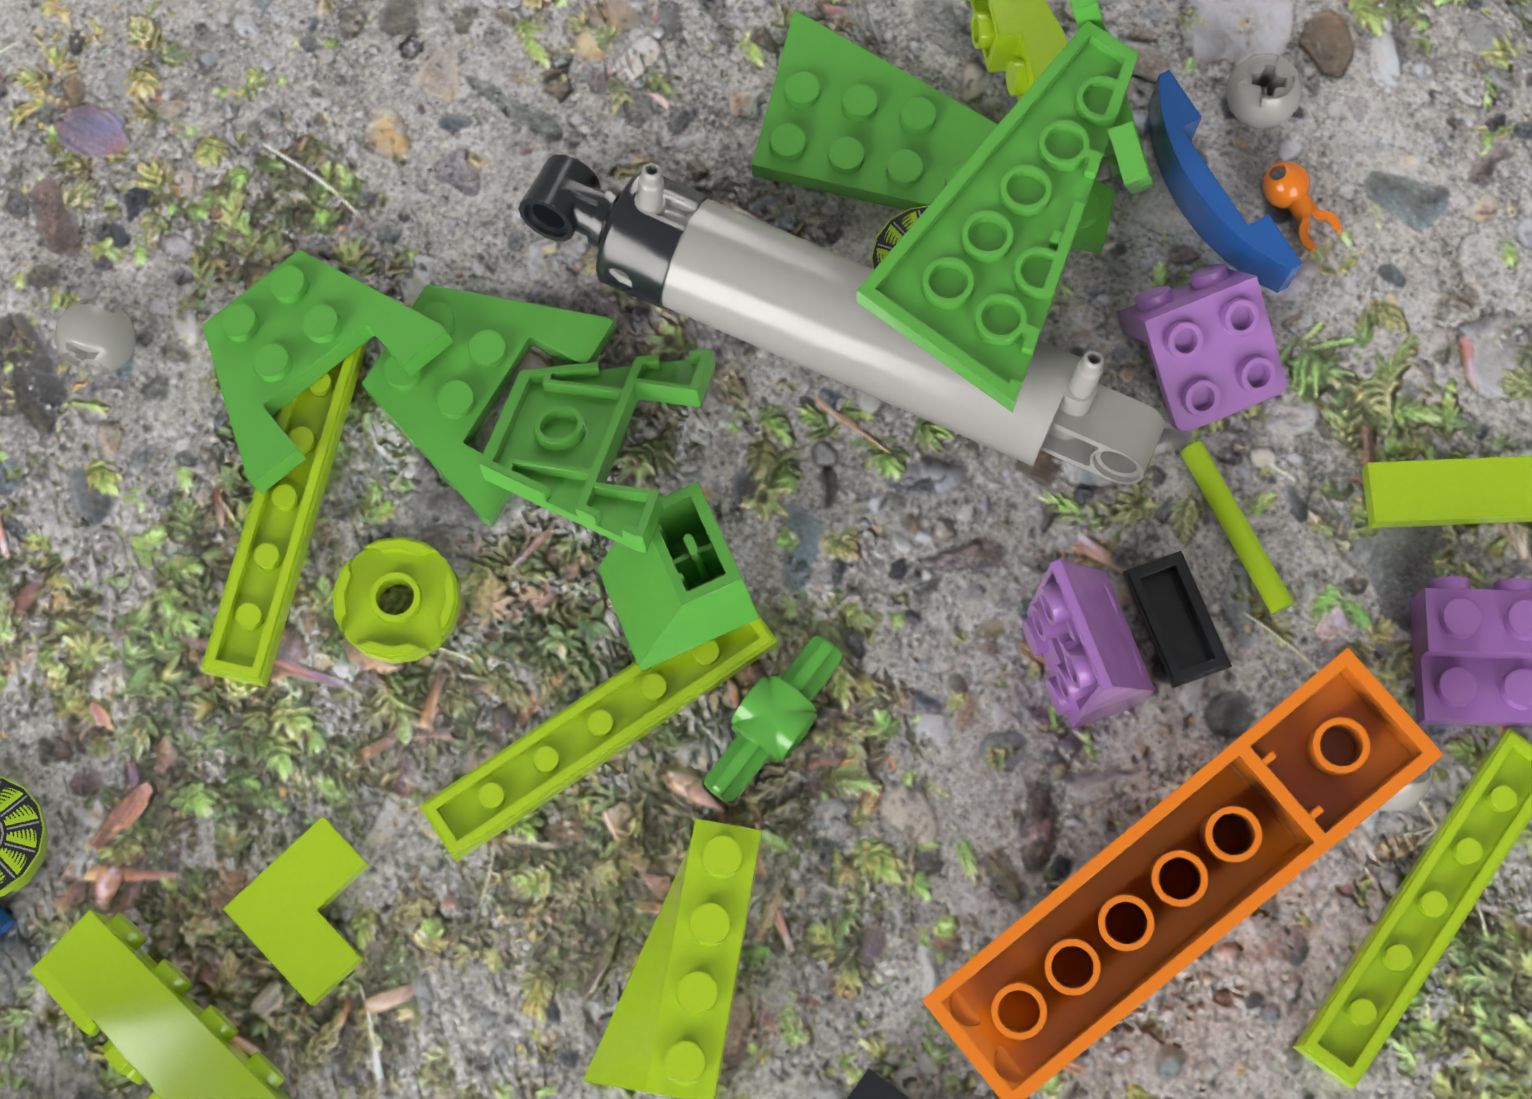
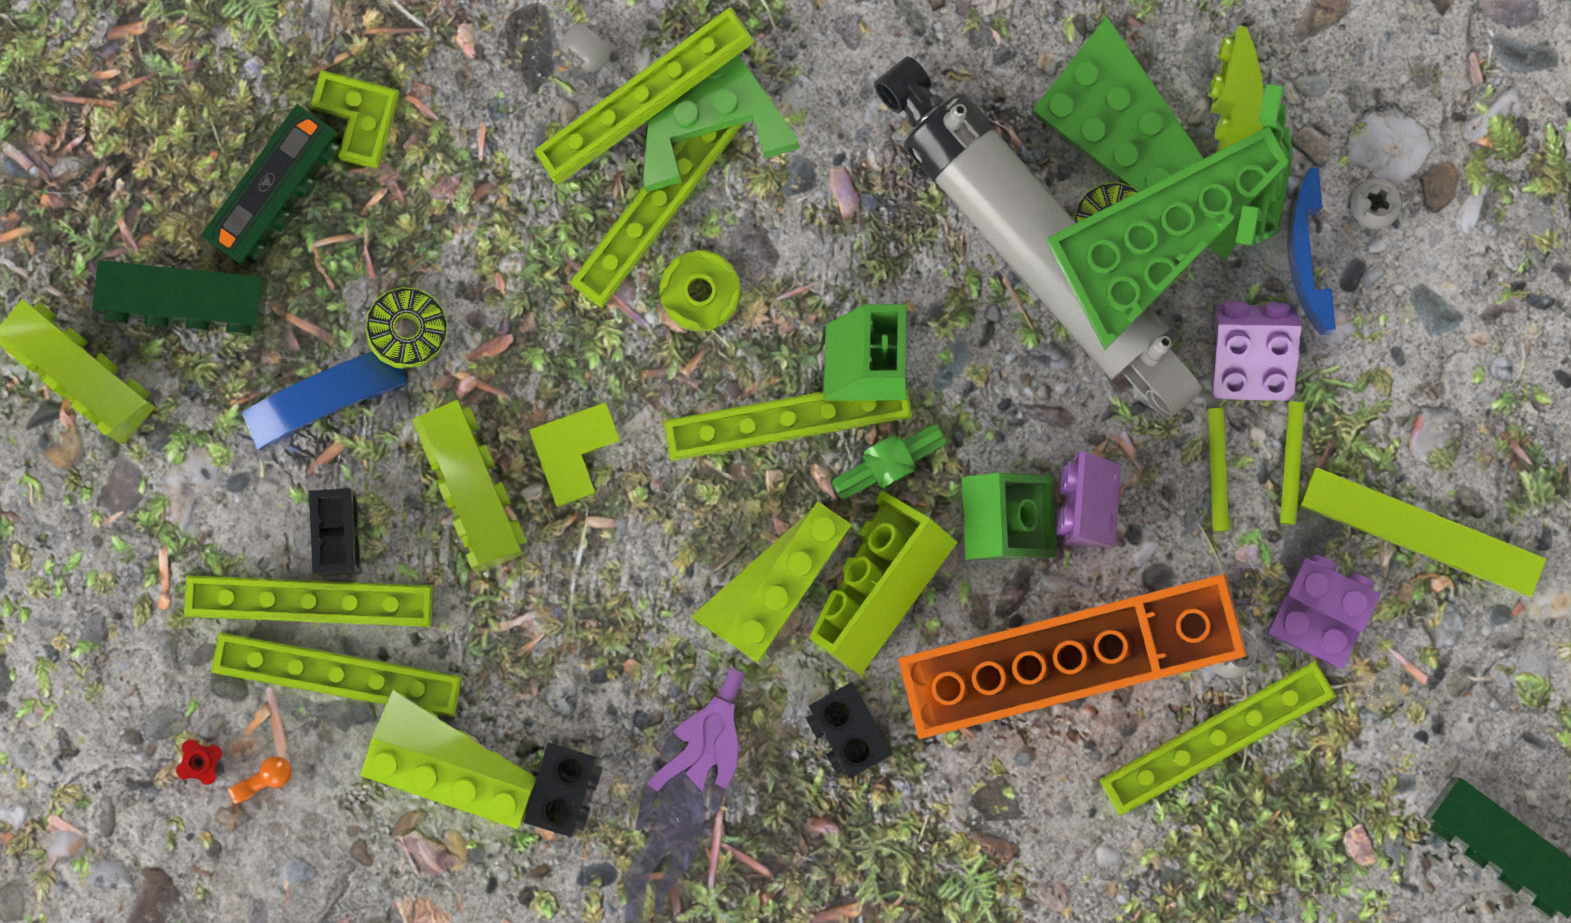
camera: 25 degrees right, 10 degrees up
(201, 366) = (644, 96): none -> lime tile
(456, 390) = (787, 177): bright green wing -> none
(567, 429) = (840, 237): bright green wing -> none
(842, 900) = (881, 582): none -> lime wedge
(980, 720) = (1009, 516): none -> bright green slope
(1176, 619) = (1153, 509): black tile -> none
(1293, 194) = (1360, 278): orange arm -> none
(1331, 474) = (1292, 463): none -> lime bar

